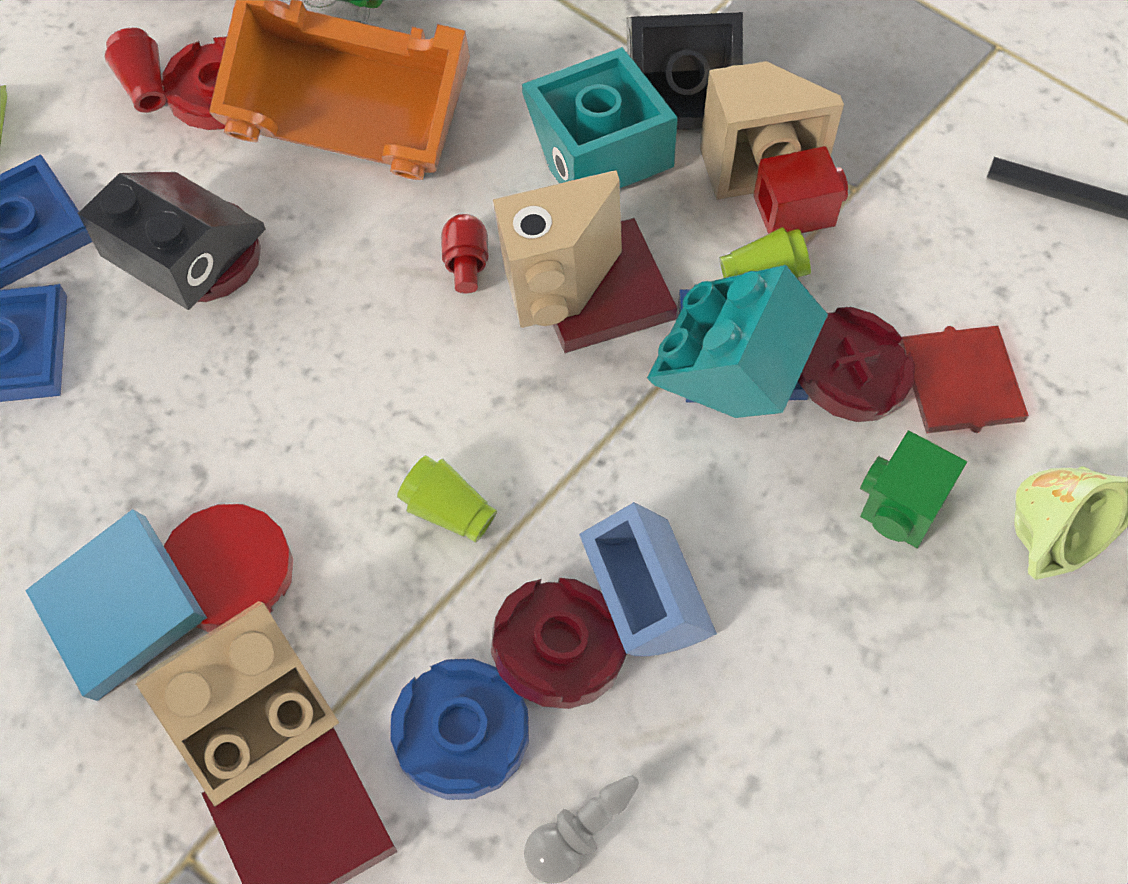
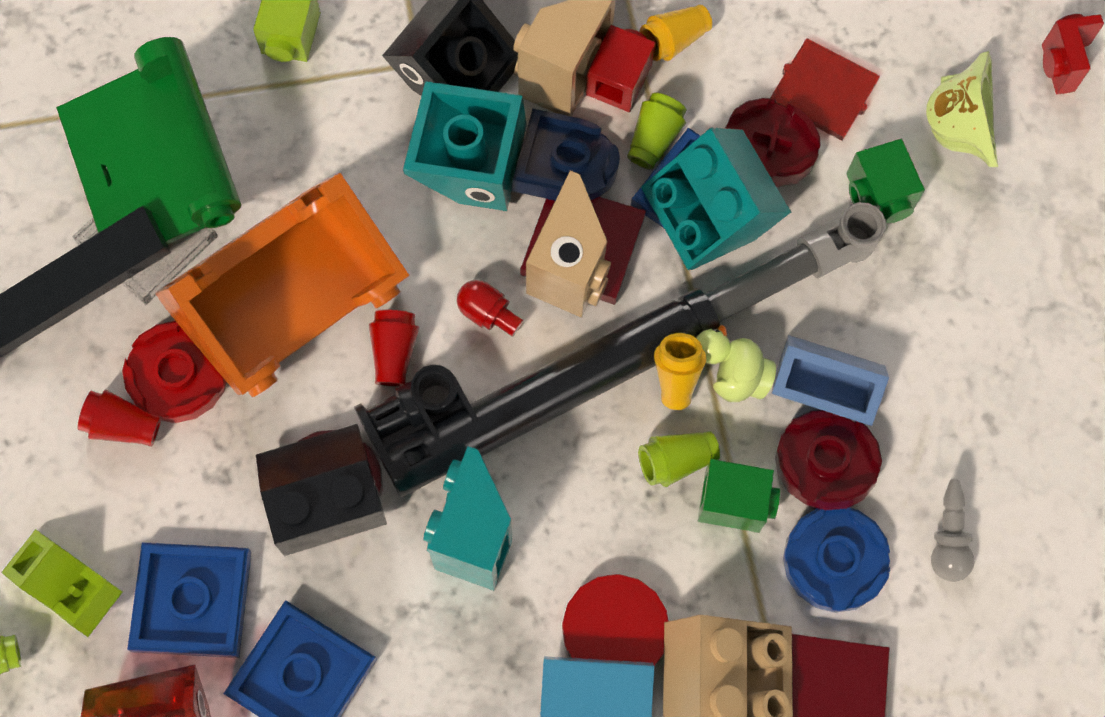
camera: 55 degrees left, 10 degrees up
(225, 359) = (474, 527): none -> teal slope
(297, 284) = (423, 438): none -> black piece
(365, 204) = (392, 342): none -> red cone
(444, 578) = (738, 496): none -> green brick
(529, 428) = (679, 366): none -> yellow cone
(587, 492) = (741, 368): none -> yellowish green animal
(671, 213) = (564, 144): none -> dark blue tile
(884, 212) = (676, 30): none -> yellow cone

